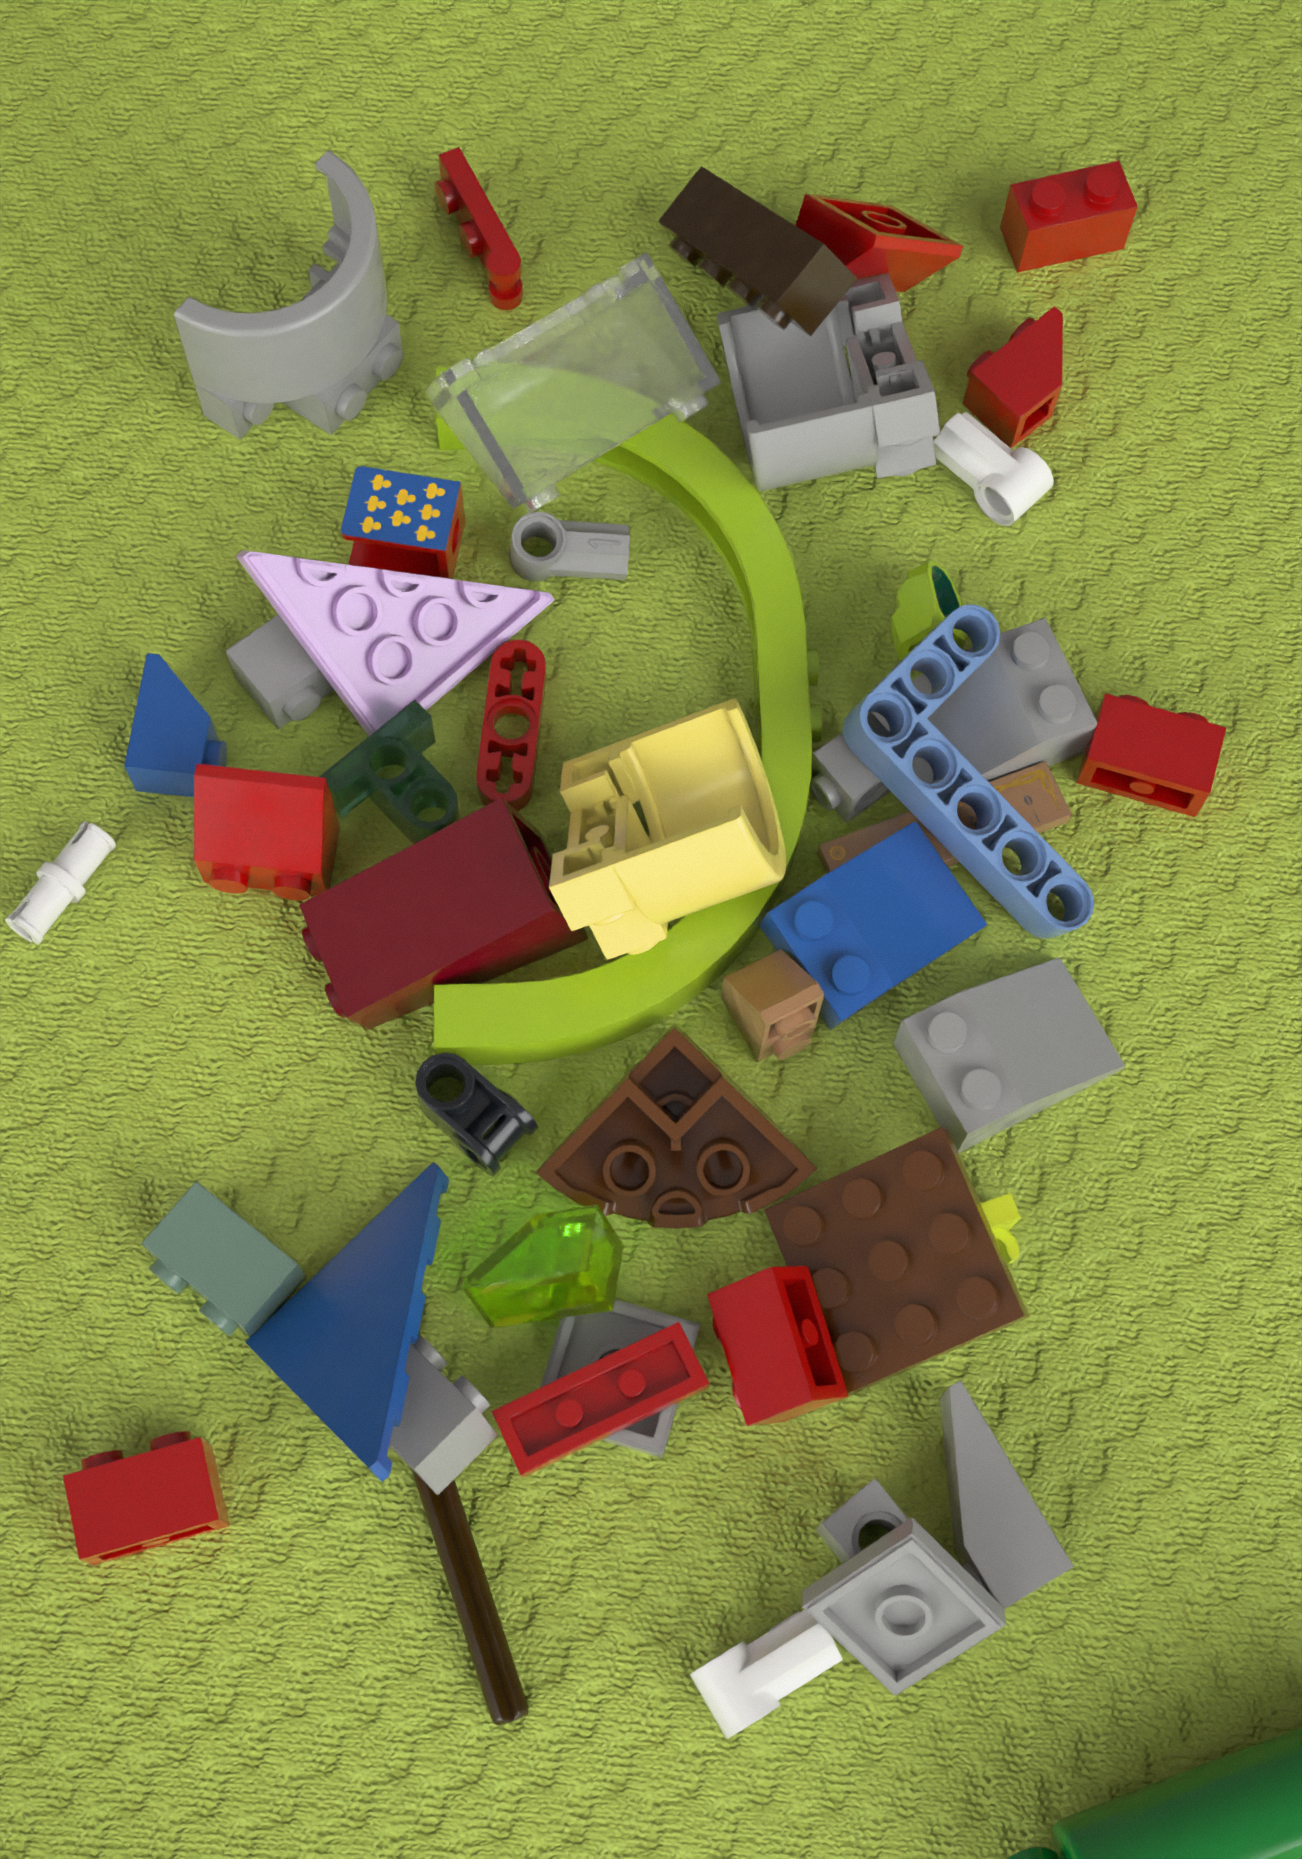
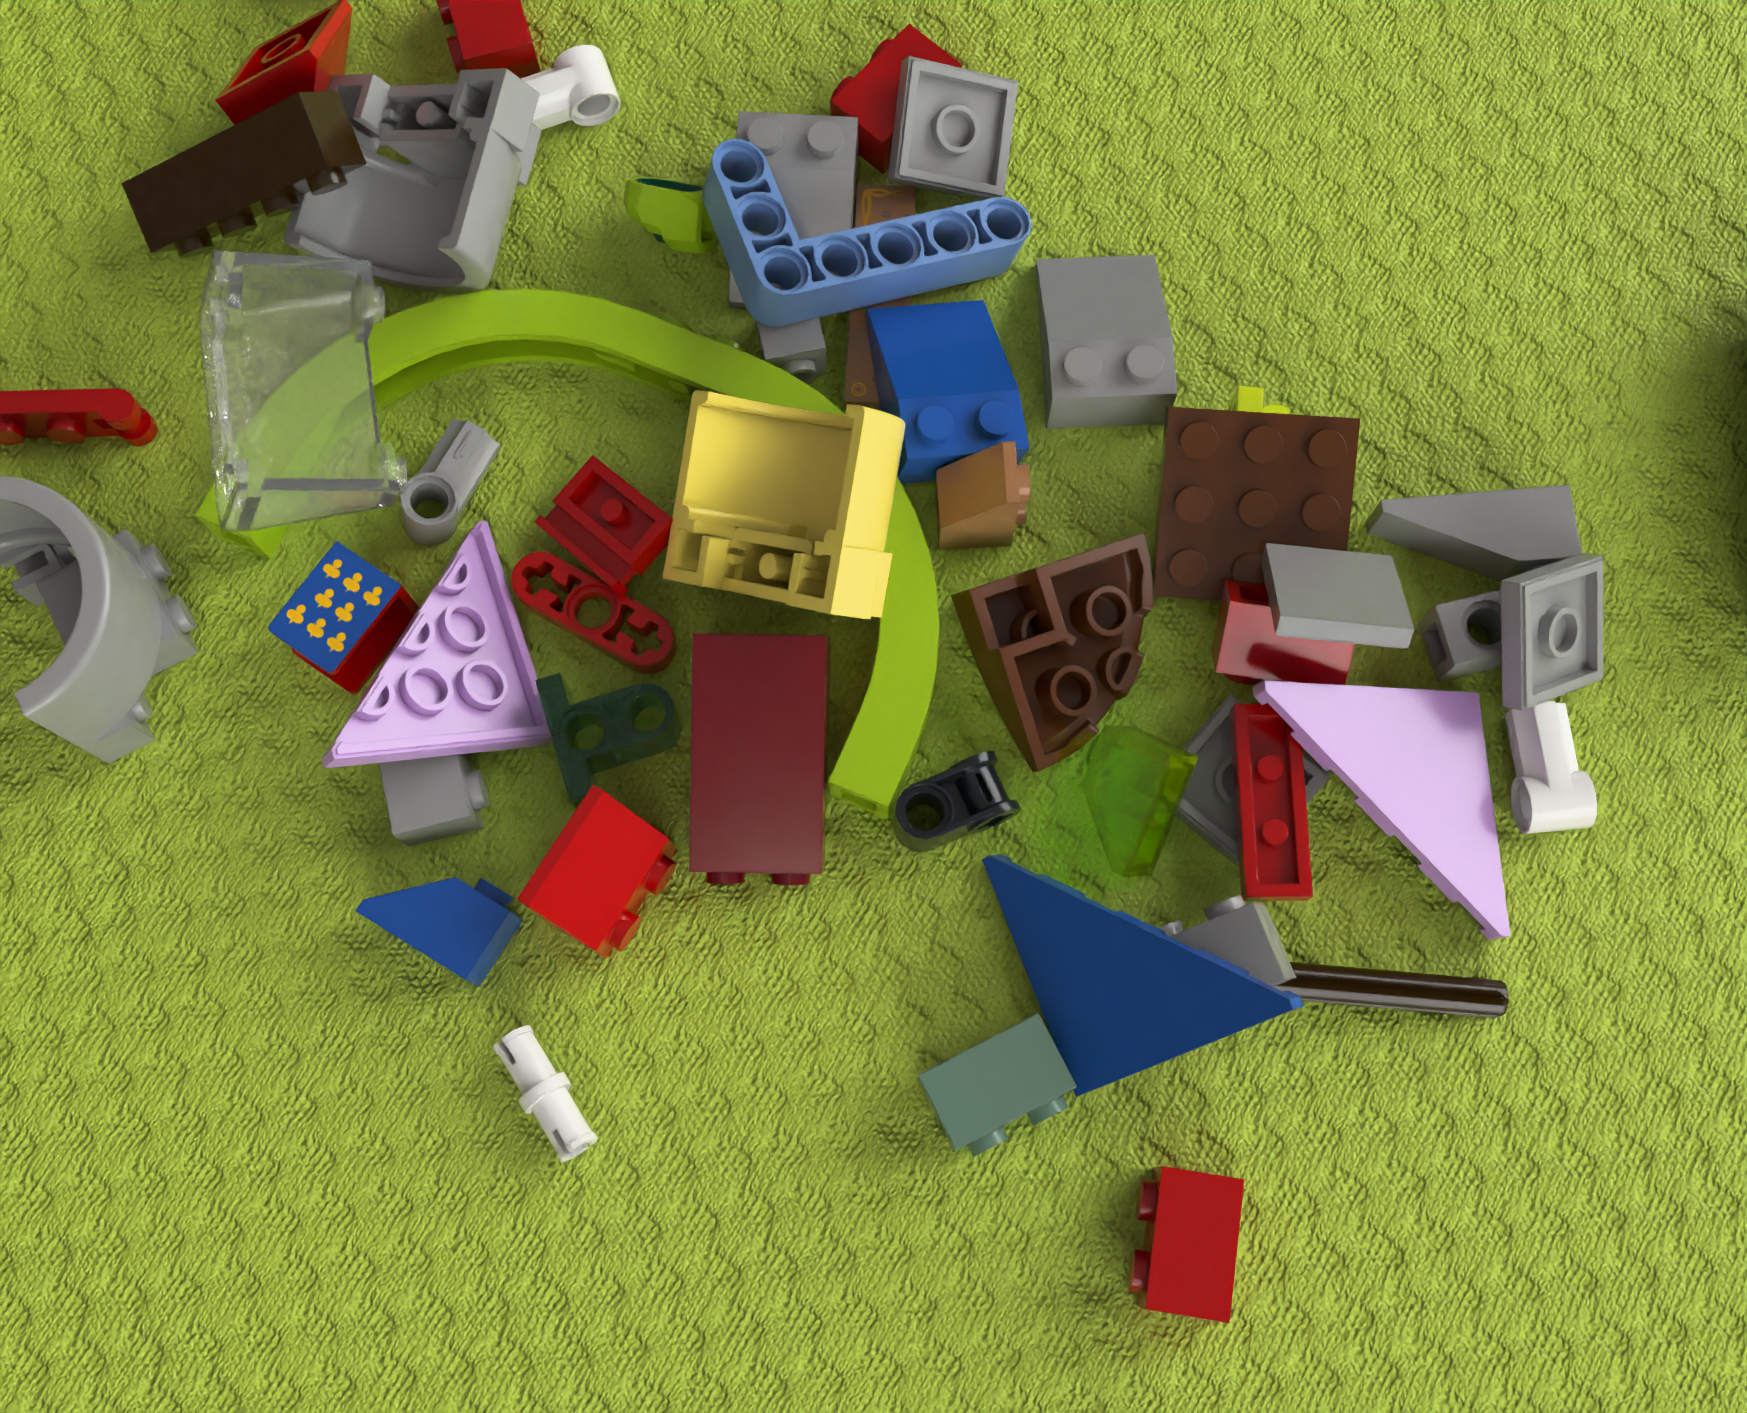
camera: 60 degrees left, 5 degrees up
(593, 695) = (607, 525): none -> red plate
(699, 1532) = (1415, 773): none -> lavender tile
(824, 1365) = (1336, 596): none -> light grey tile
(1139, 816) = (952, 129): none -> light grey tile

